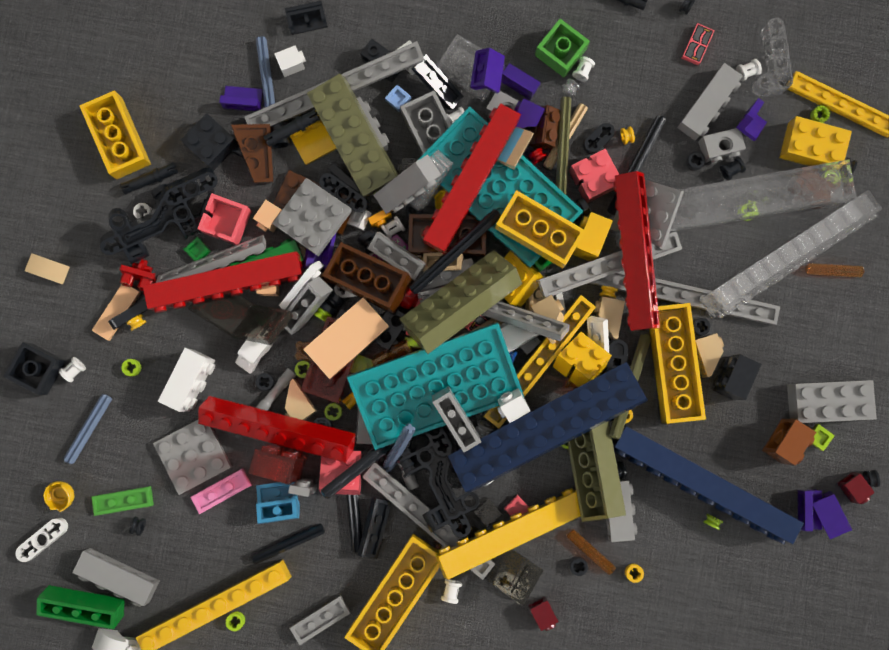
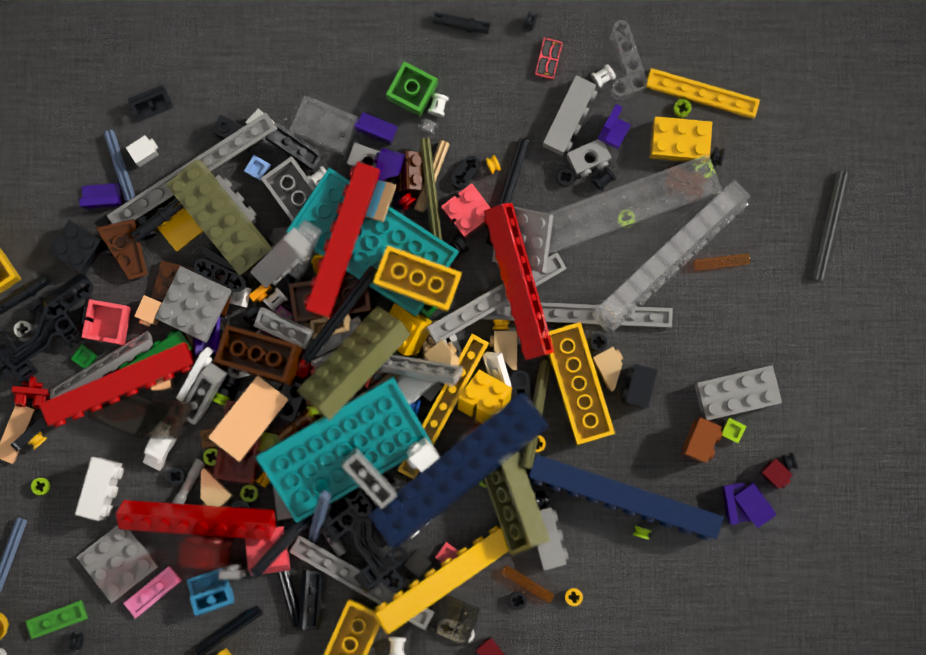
camera: 10 degrees left, 0 degrees up
(487, 70) = (340, 127): dark purple panel -> none
(594, 237) = (473, 273): yellow piece -> none

